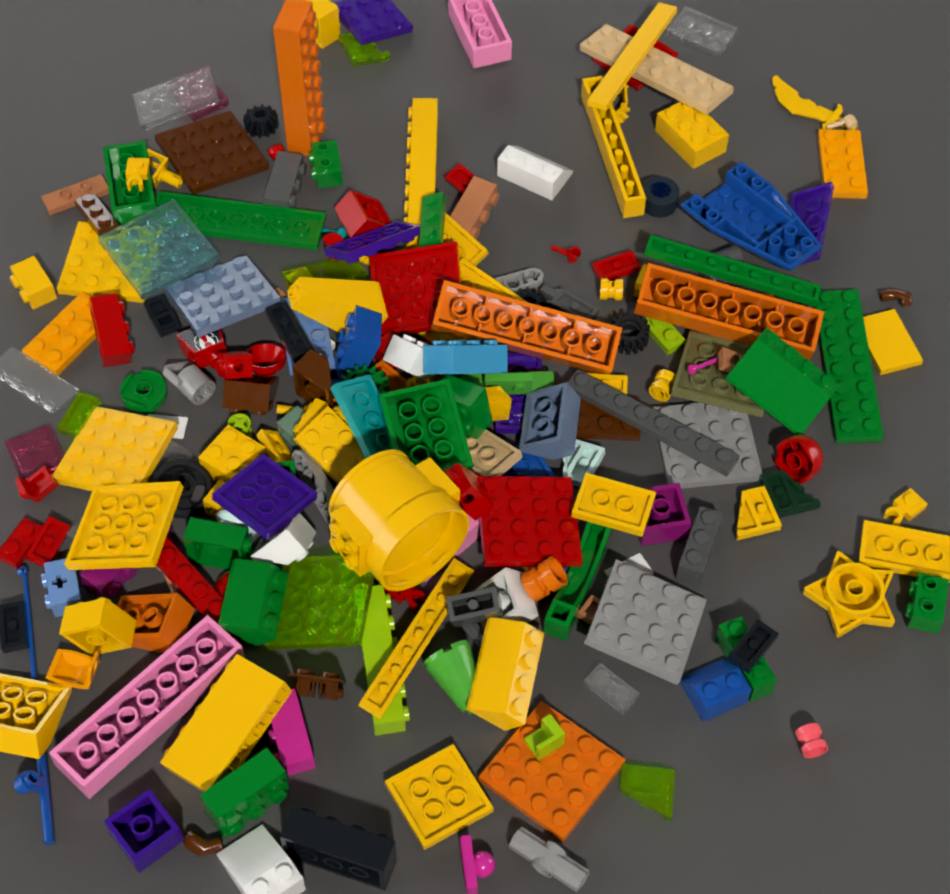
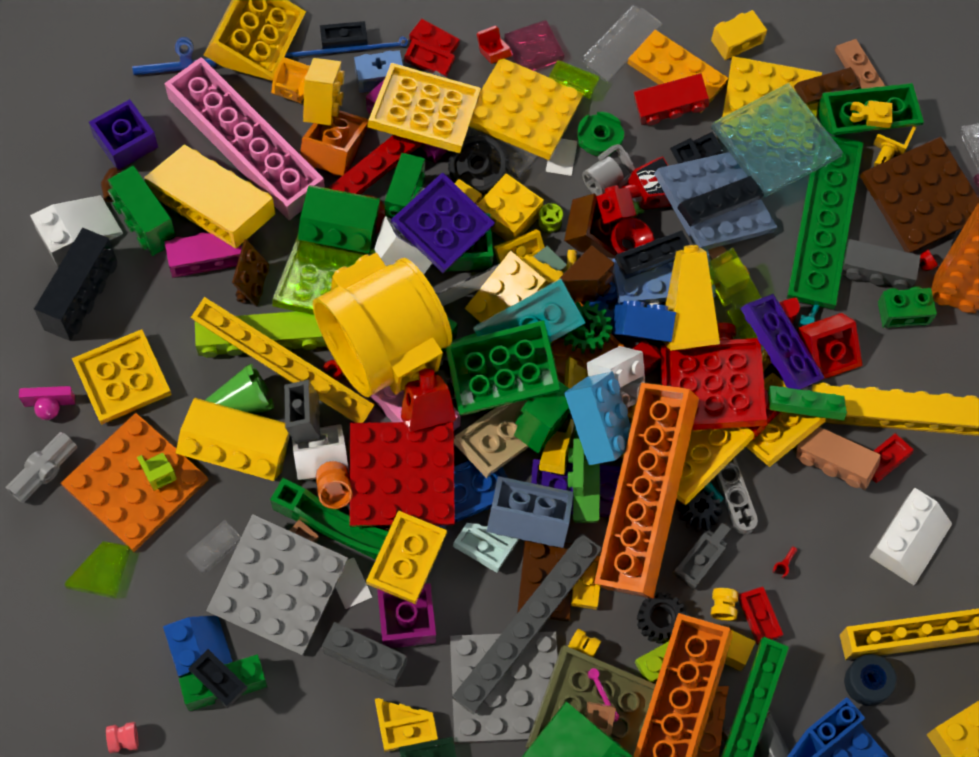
camera: 90 degrees right, 10 degrees up
(230, 284) = (720, 201): none -> black plate

